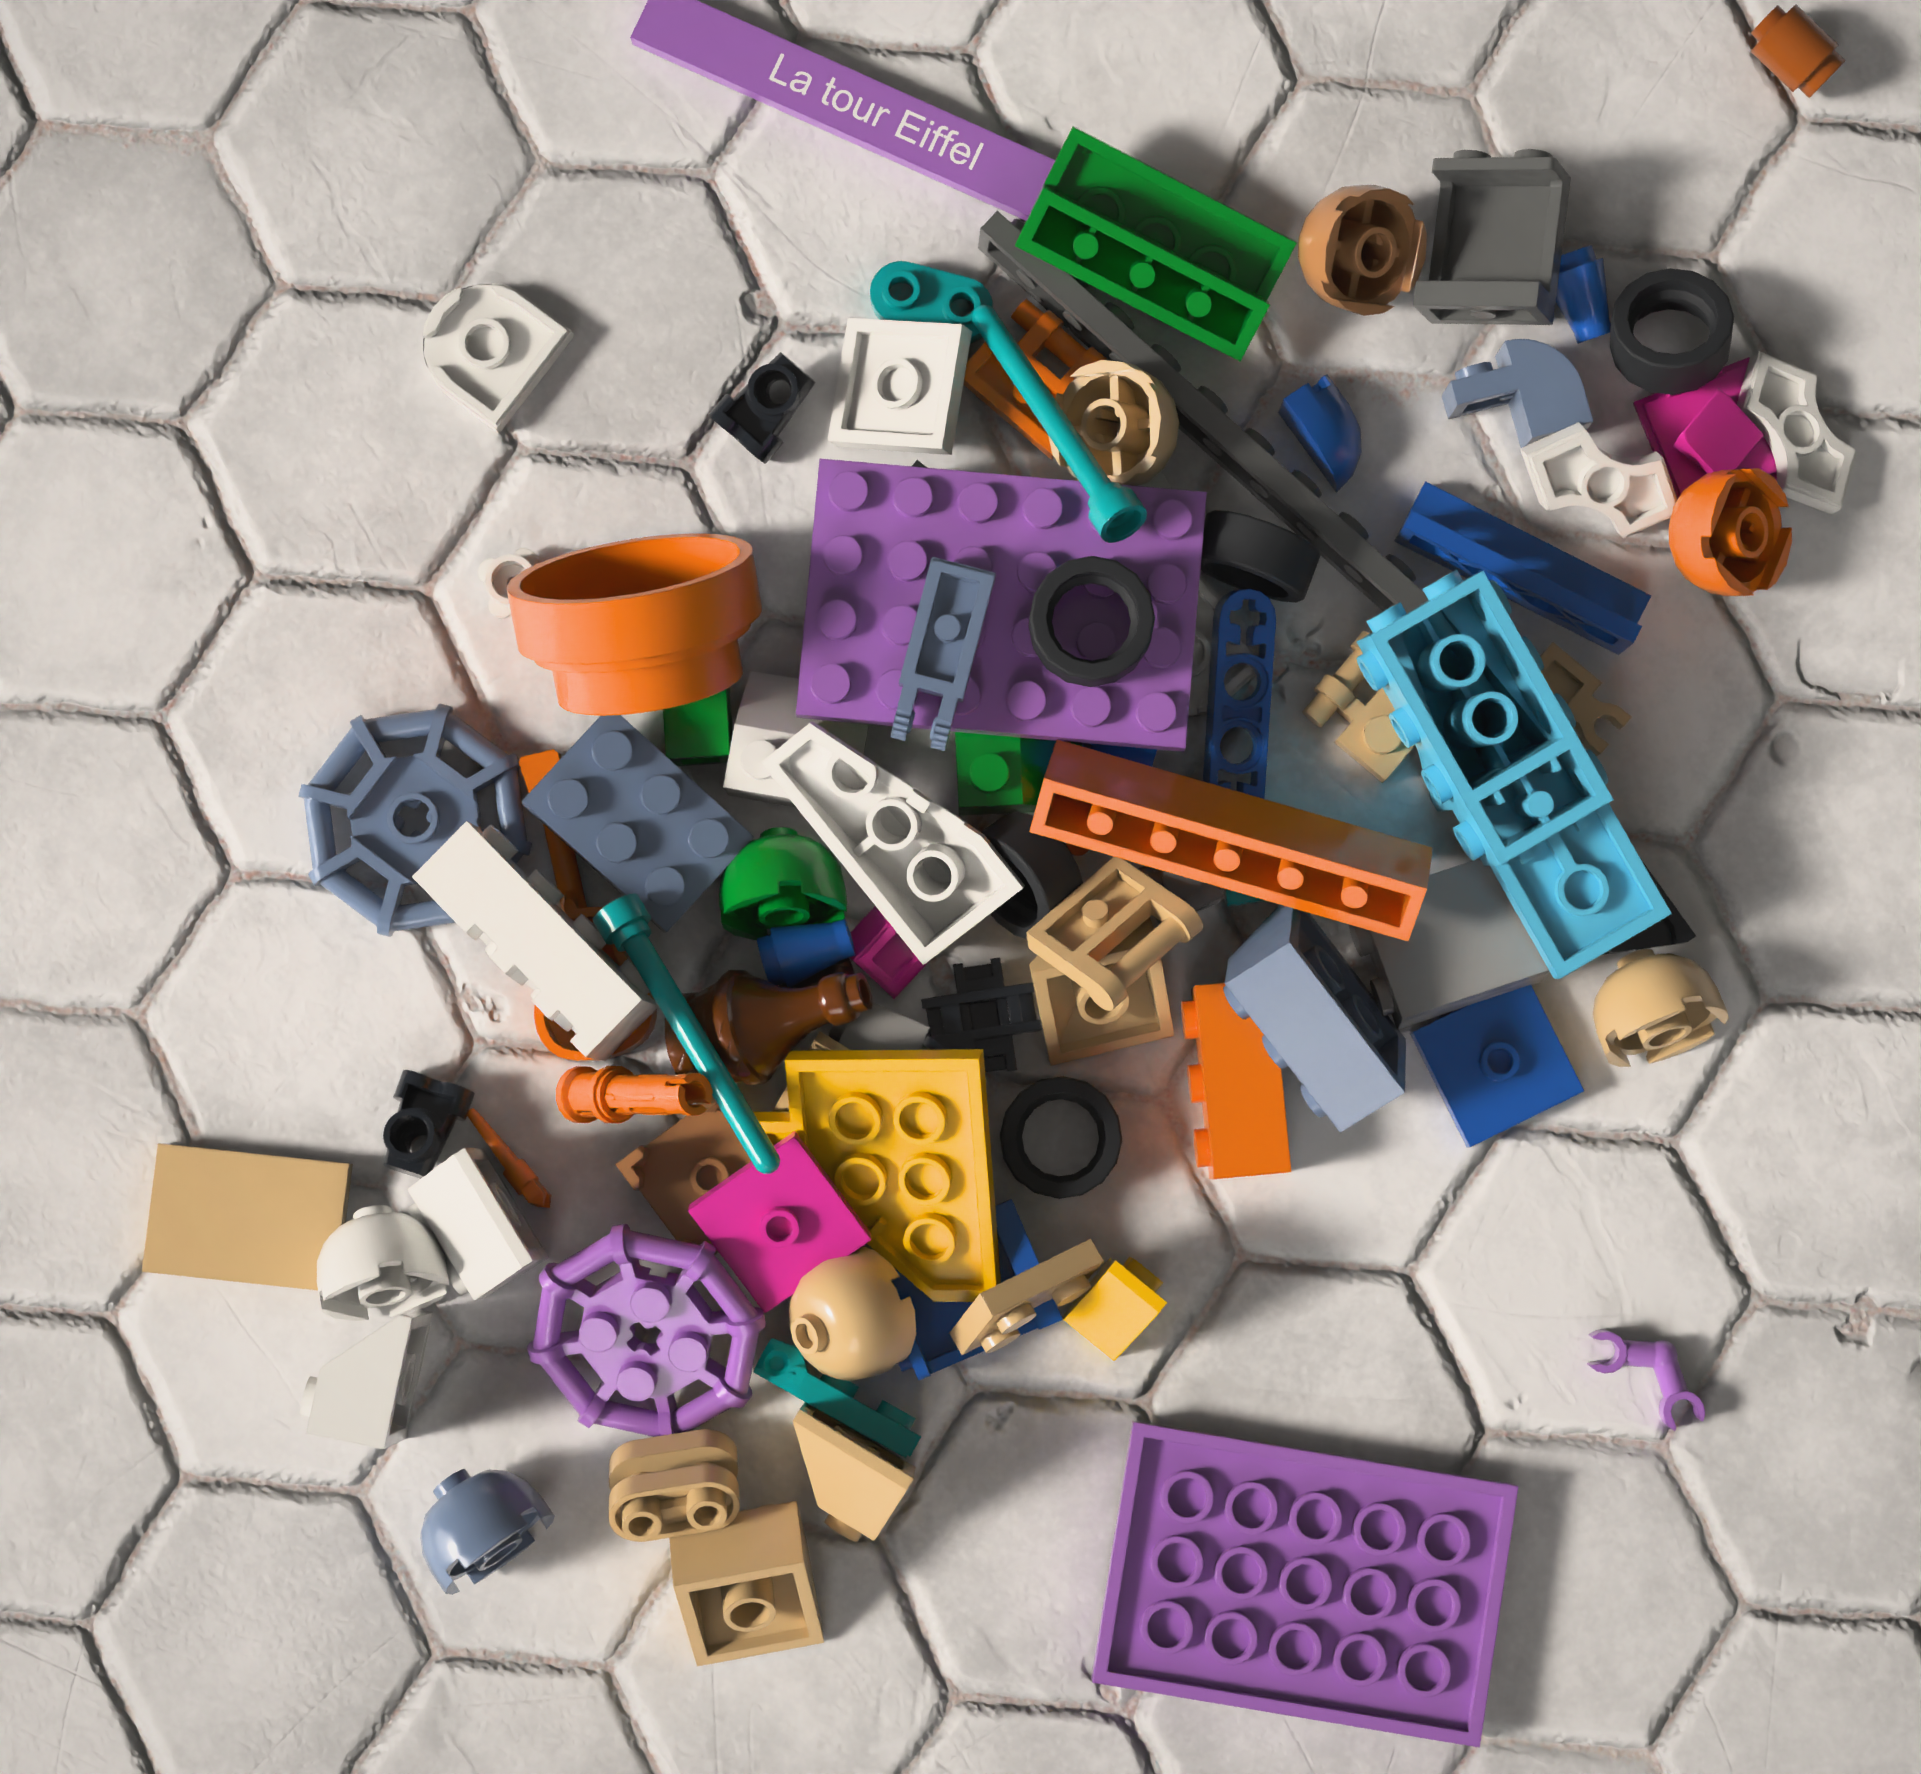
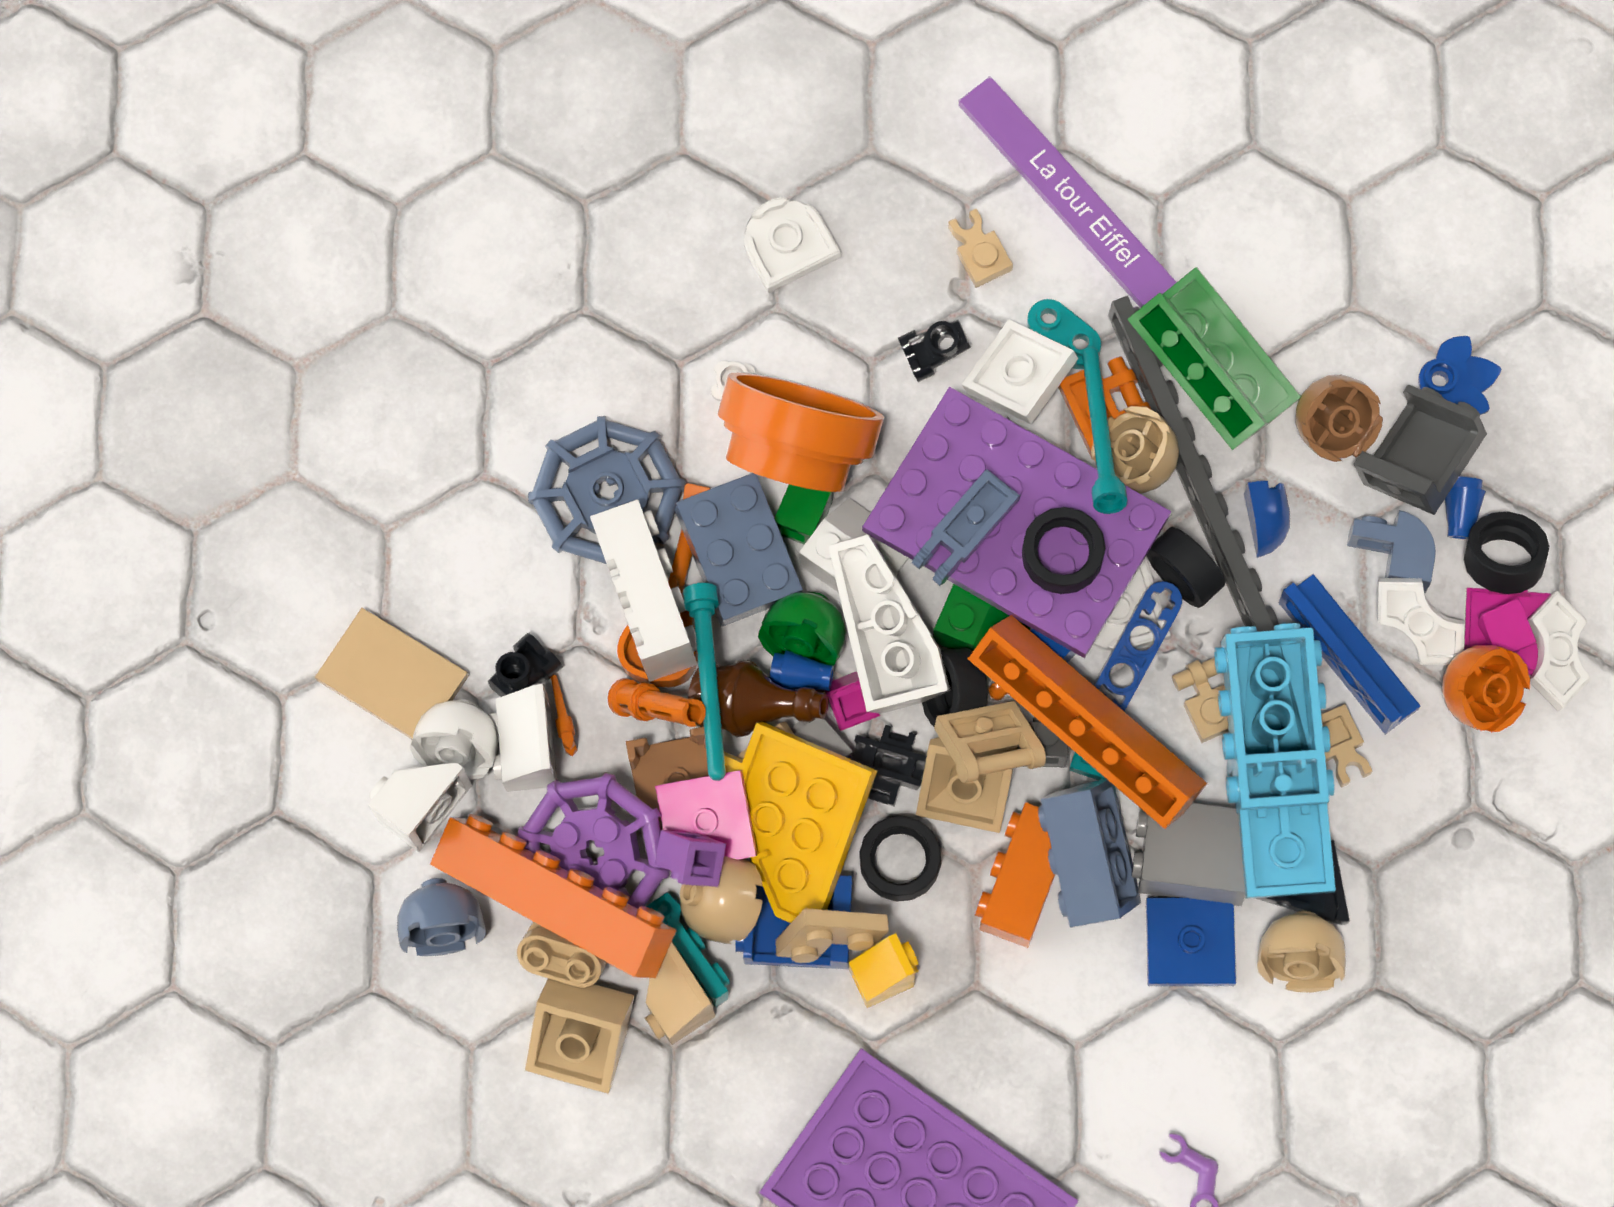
camera: 30 degrees right, 10 degrees down
(625, 1431) = (554, 897): none -> orange brick
(765, 241) = (981, 254): none -> tan plate
(788, 1293) = (691, 857): none -> medium lavender brick
(1494, 106) = (1464, 374): none -> blue plate

